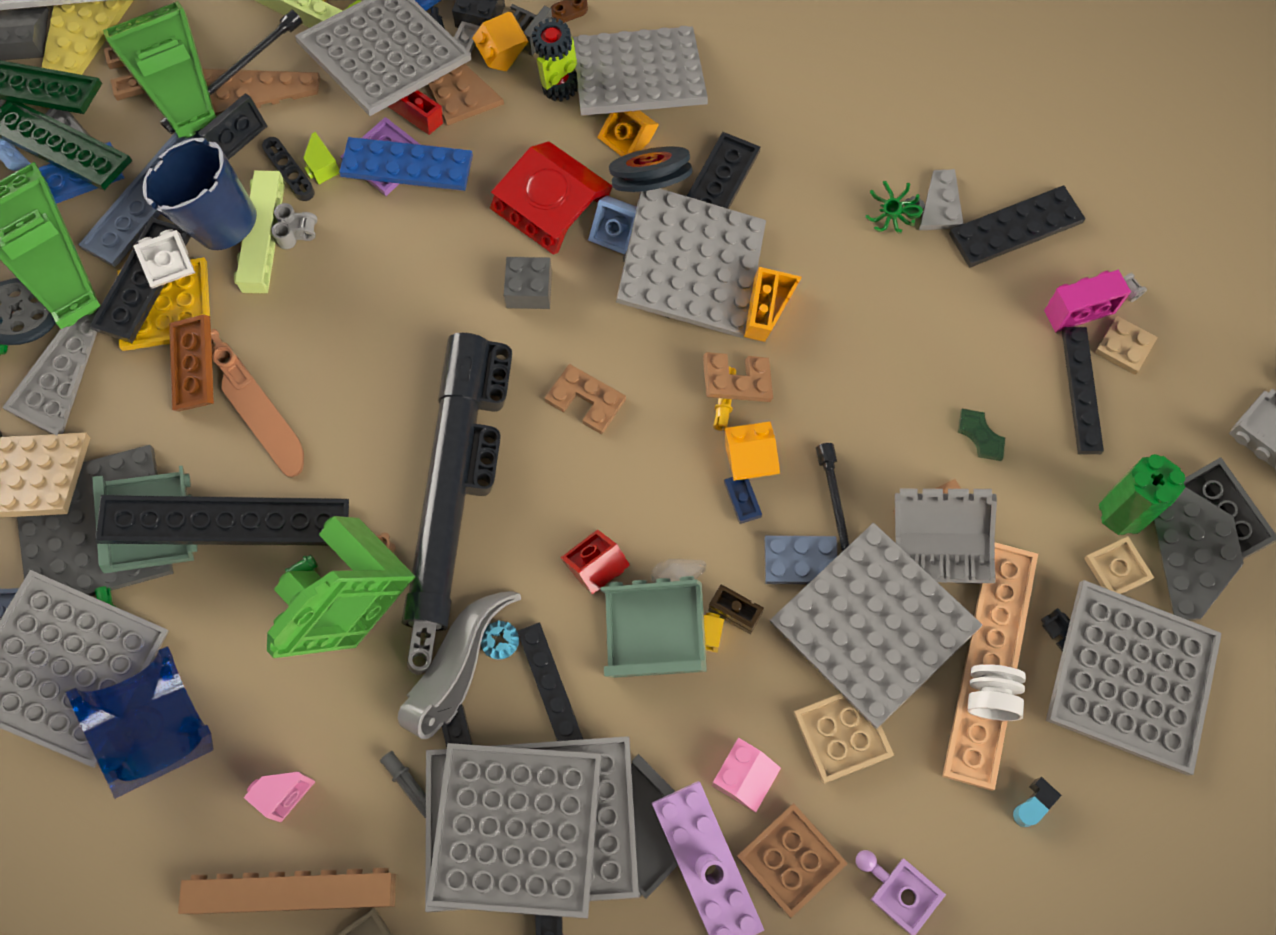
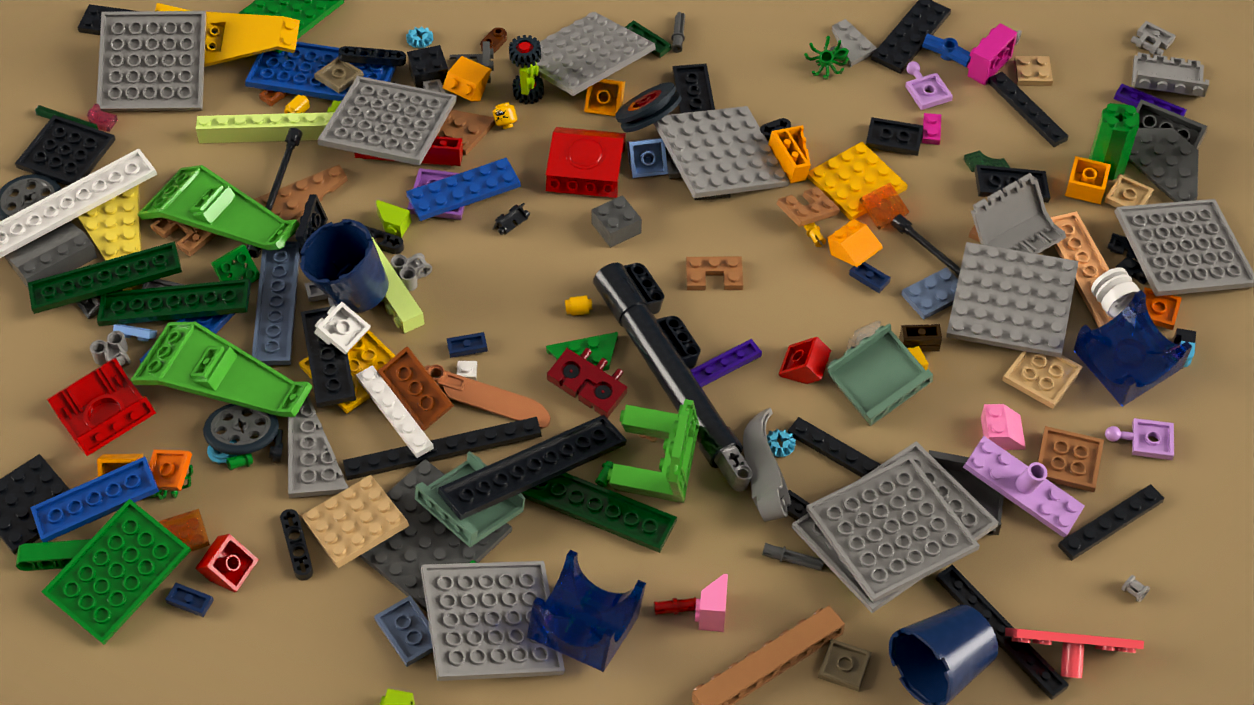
camera: 35 degrees left, 15 degrees down
(29, 355) = (276, 452): none -> black plate
(138, 133) = (225, 266): none -> green plate
(154, 379) = (394, 411): none -> white plate
(177, 443) = (443, 448): none -> black plate
(251, 762) = (675, 606): none -> red pin
(252, 581) = (604, 510): none -> dark green plate
(264, 369) = (467, 369): none -> white plate
(283, 340) = (467, 344): none -> dark blue plate
(358, 453) = (587, 381): none -> dark red piece
(388, 418) = (601, 347): none -> green wing
(419, 358) = (578, 305): none -> yellow brick
(423, 222) = (515, 214): none -> black hinge
(509, 100) = (505, 115): none -> yellow head
(512, 512) = (726, 362): none -> dark purple plate
(722, 85) = (661, 45): none -> dark green plate
(756, 99) = (678, 35): none -> dark grey axle
(778, 261) = (778, 124): none -> black beam
(819, 373) = (852, 176): none -> yellow plate
(822, 422) = (883, 205): none -> clear orange plate
(900, 342) = (894, 136): none -> black plate
(951, 355) = (931, 128): none -> dark pink plate
(959, 776) = (1130, 352): none -> clear blue piece
(980, 468) = (994, 178): none -> black plate
(991, 297) = (932, 83): none -> lavender plate
(1036, 258) = (948, 49): none -> blue piece
(1040, 738) = (1162, 309): none -> orange plate
(1047, 662) = (1133, 269): none -> black plate
(1080, 522) = (1088, 180): none -> light orange brick
(1223, 445) = (1133, 96): none -> dark purple plate

